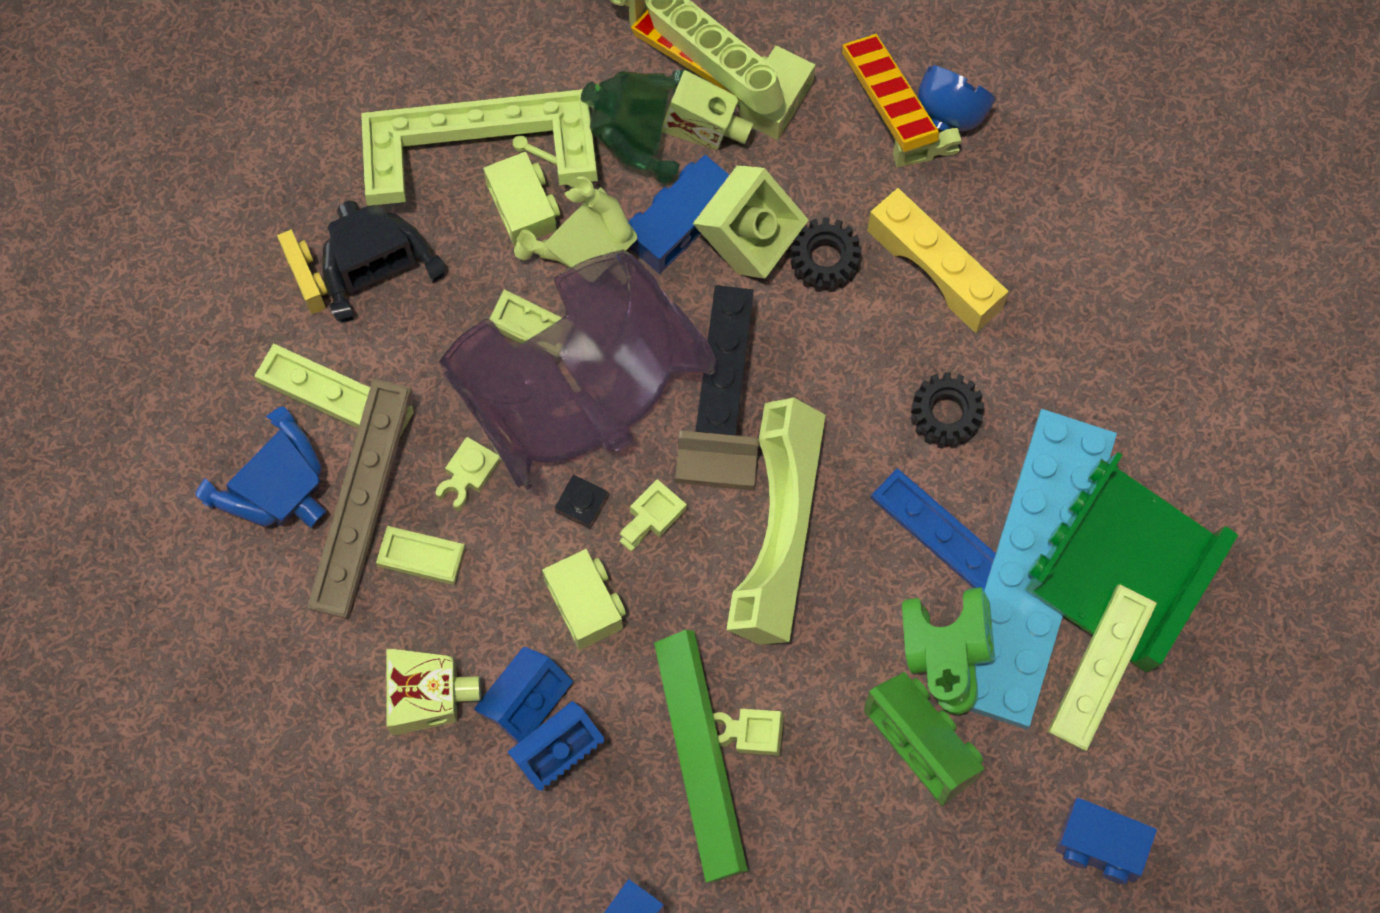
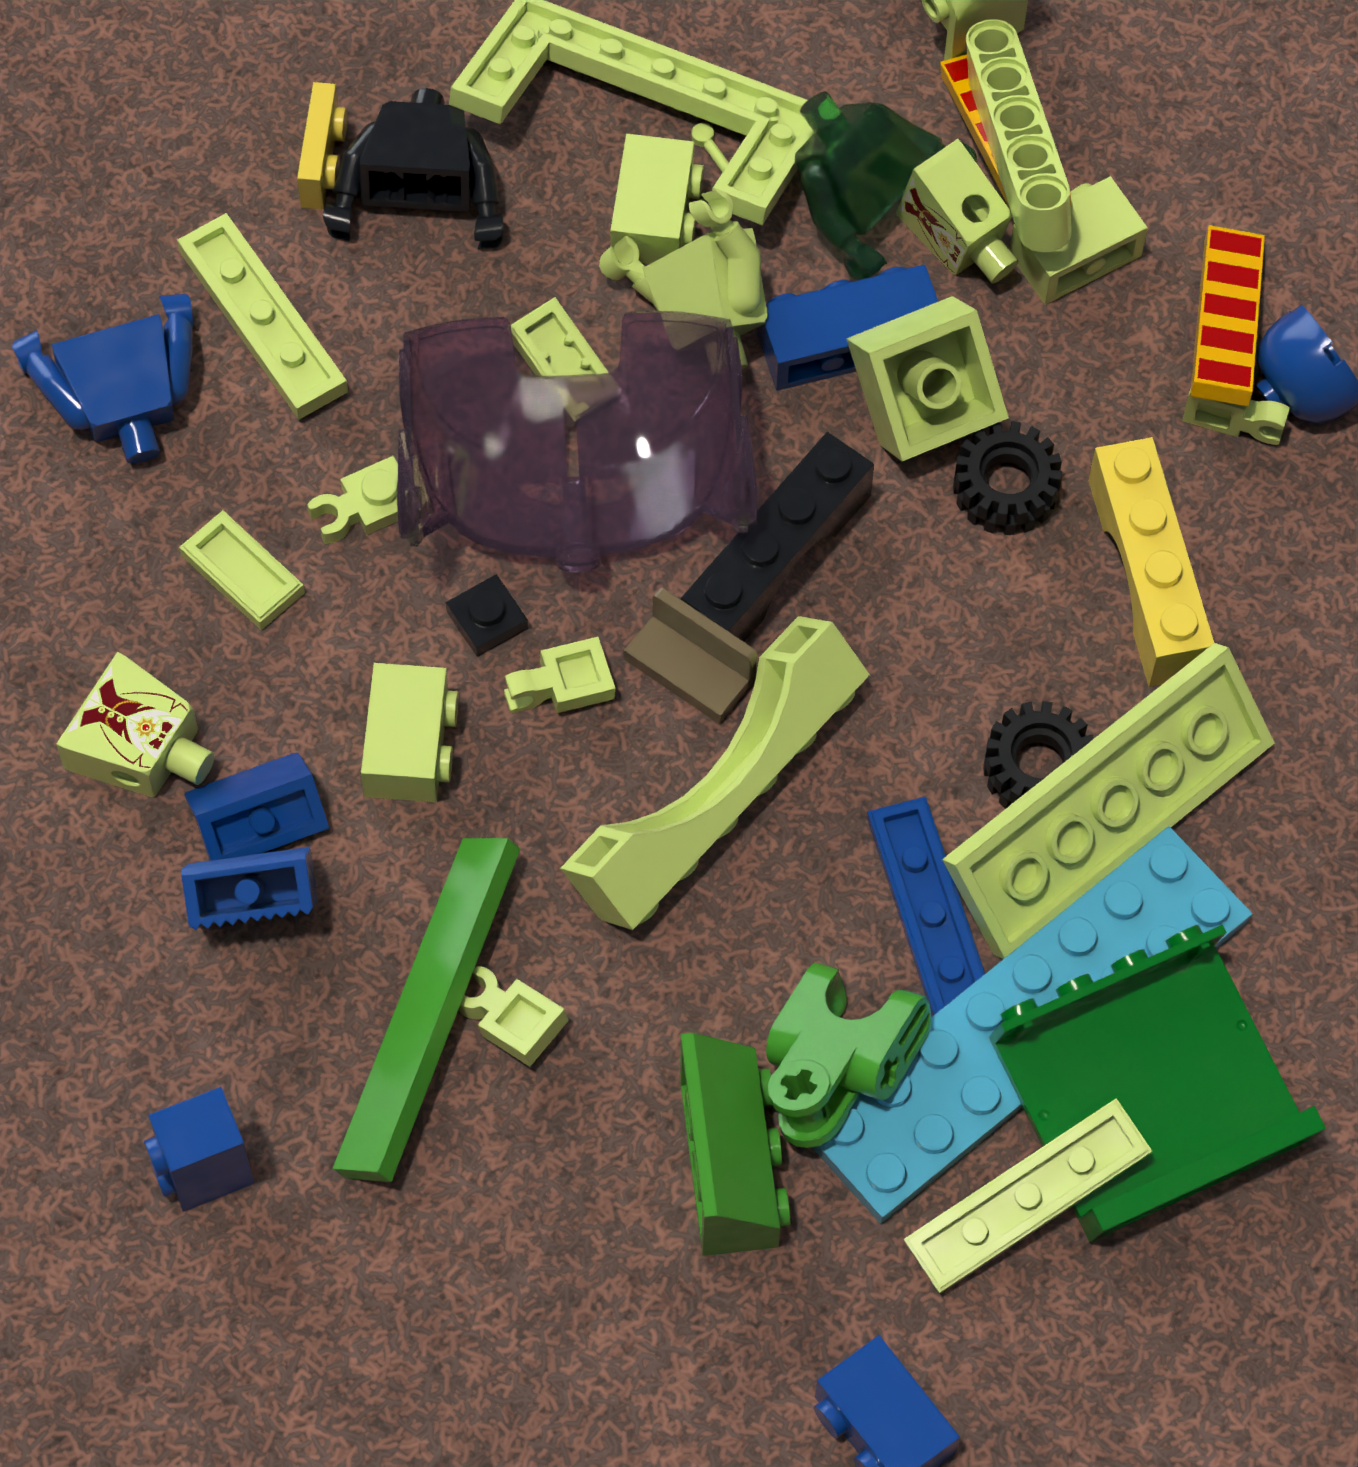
camera: 30 degrees right, 5 degrees down
(360, 499) = (209, 457): dark tan tile -> none
(1004, 414) = (1109, 800): none -> yellowish green plate

